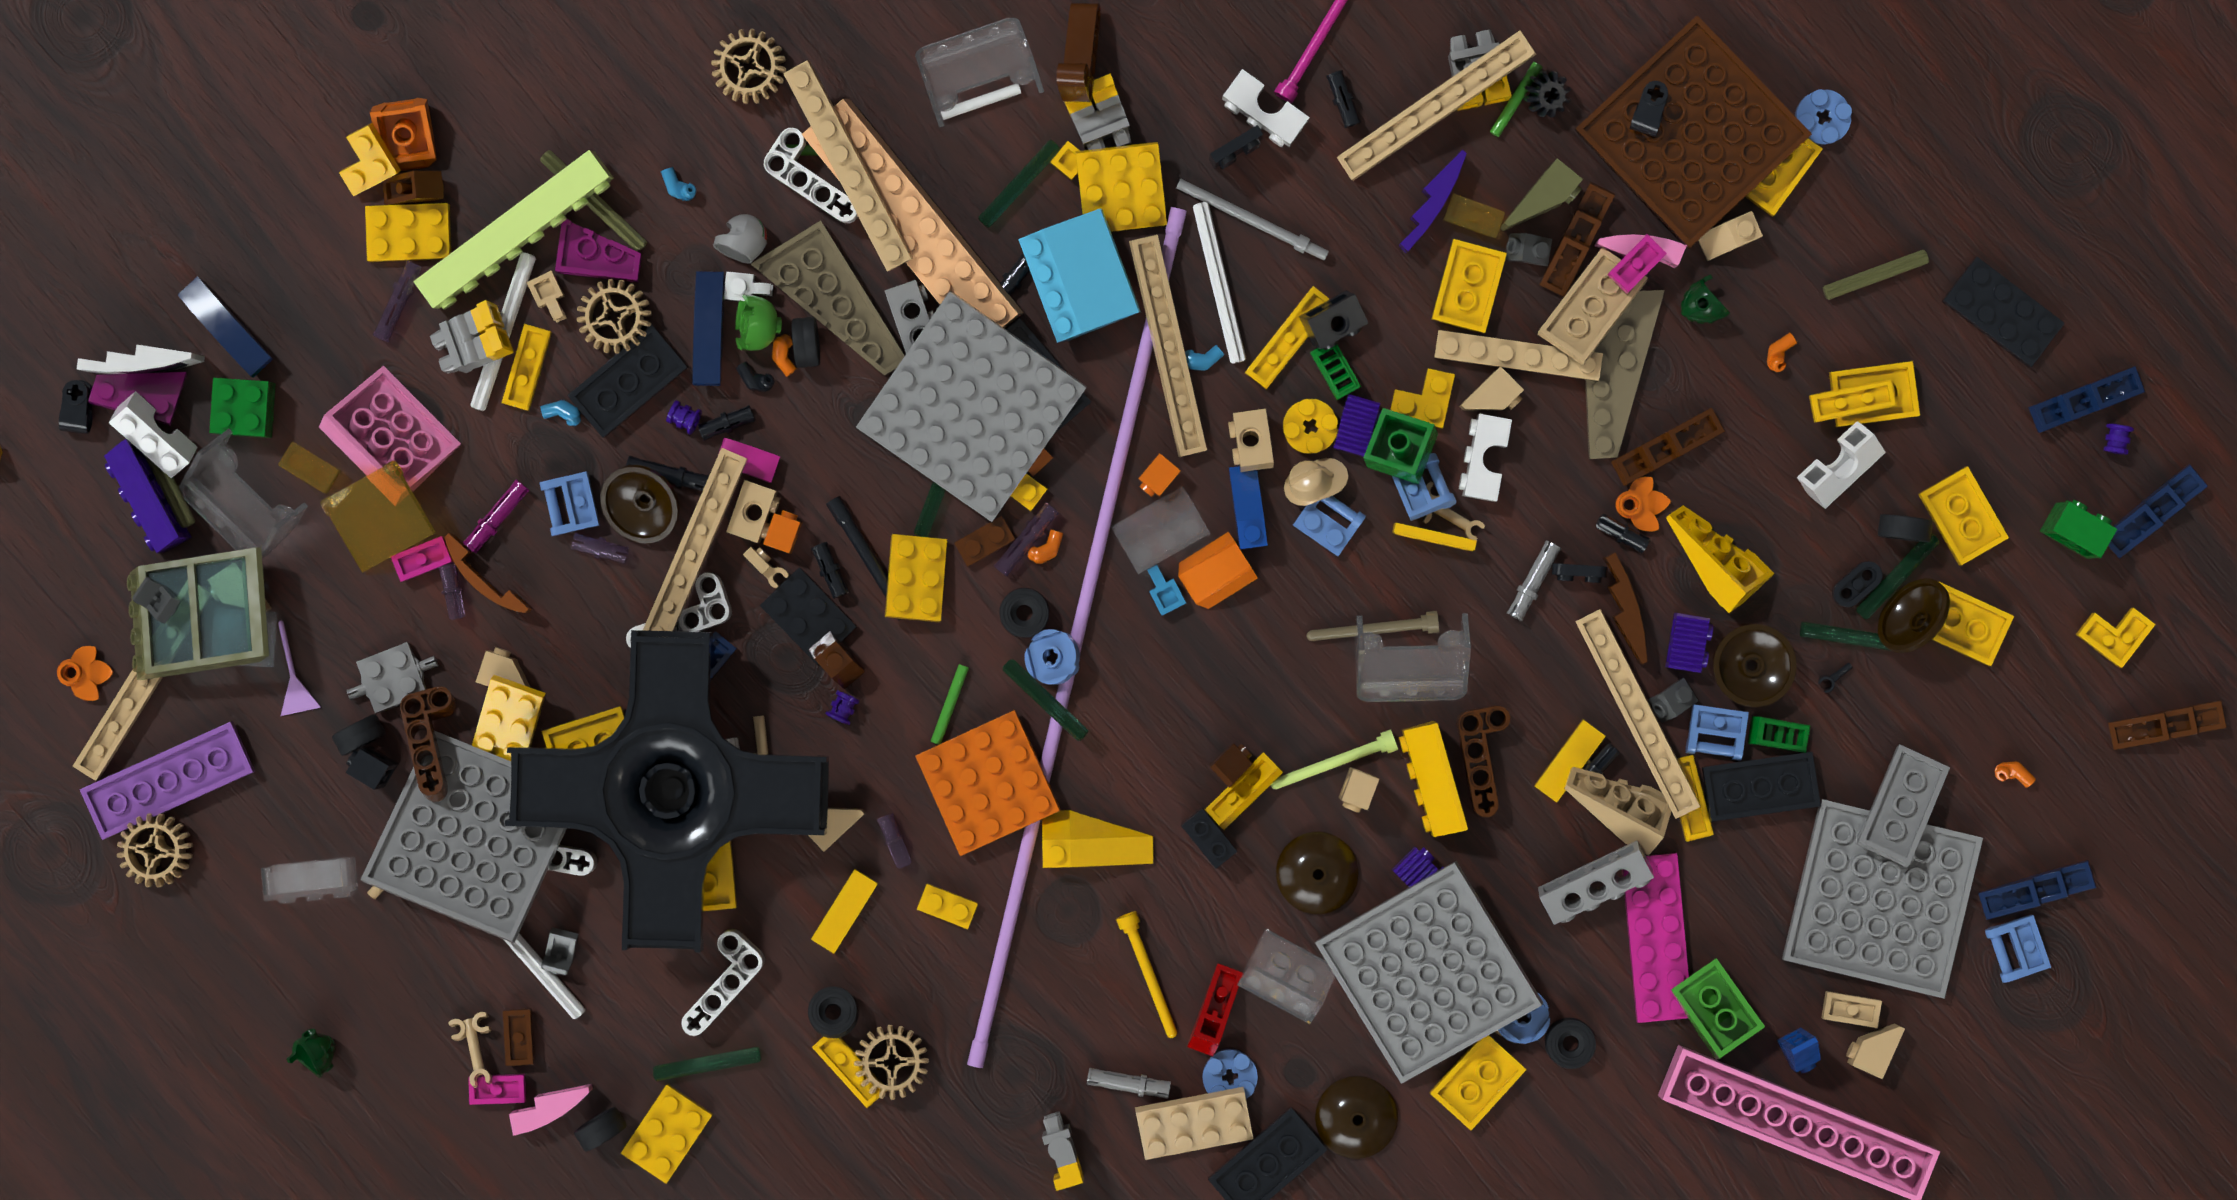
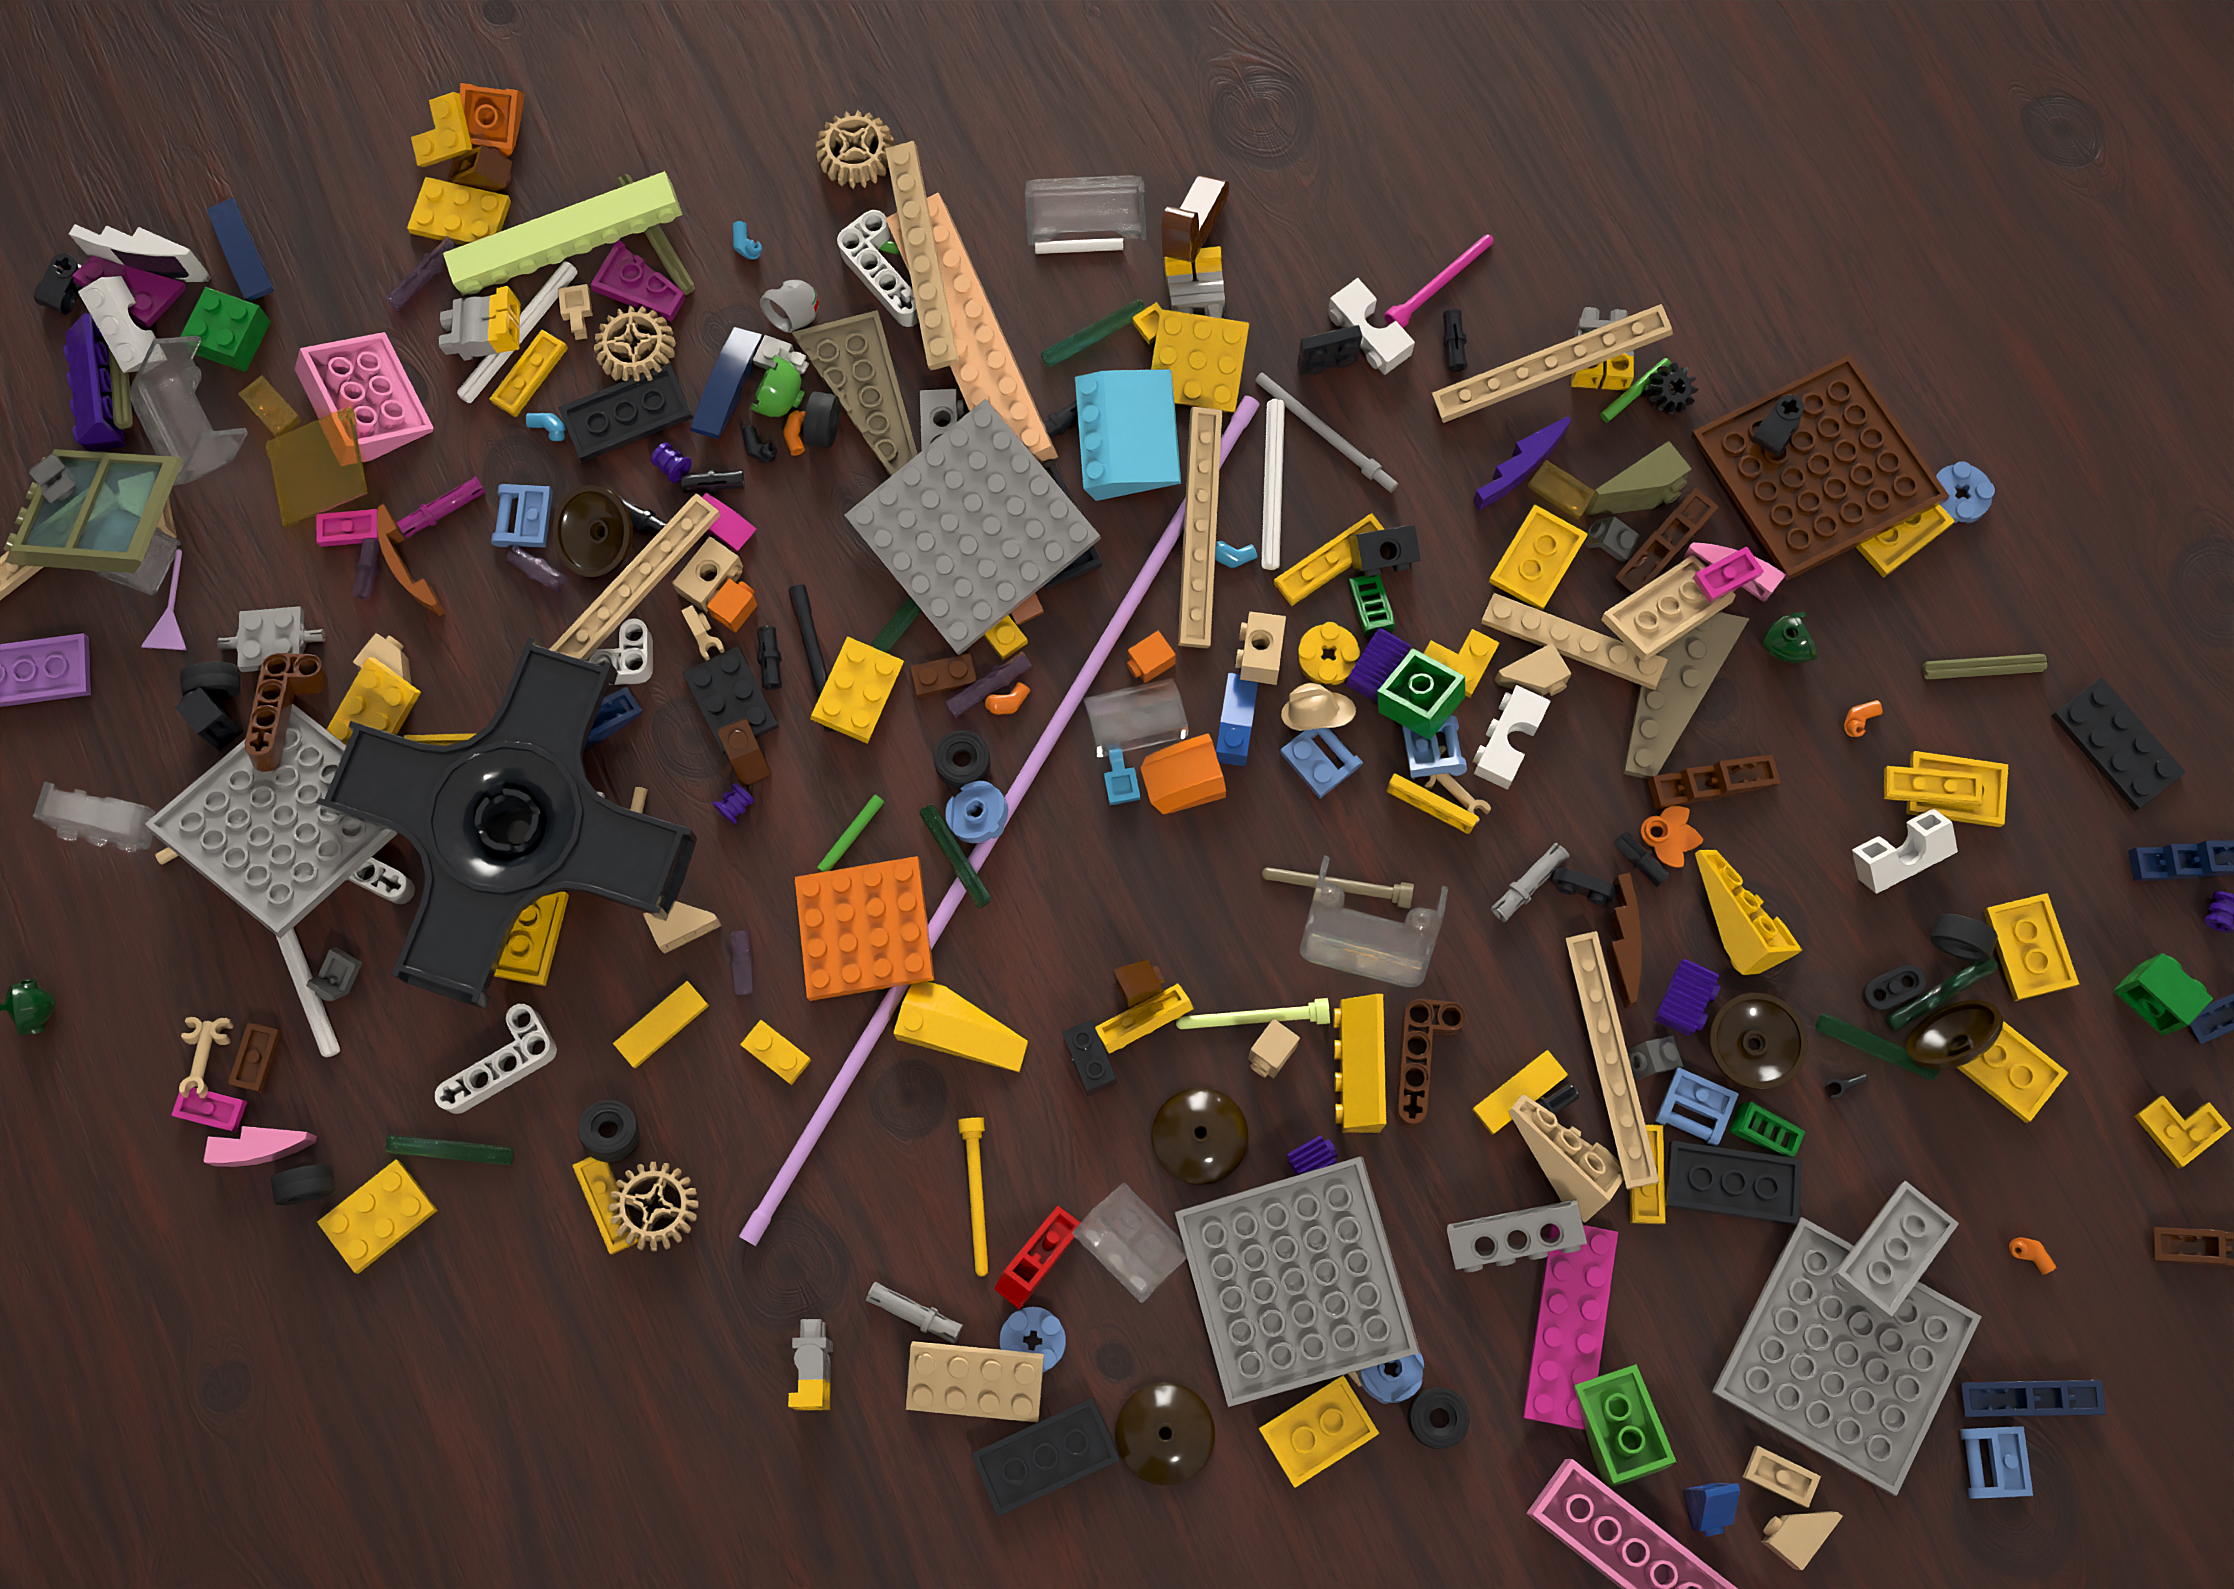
camera: 20 degrees right, 15 degrees down
(1730, 236) = (1835, 582): tan slope -> none

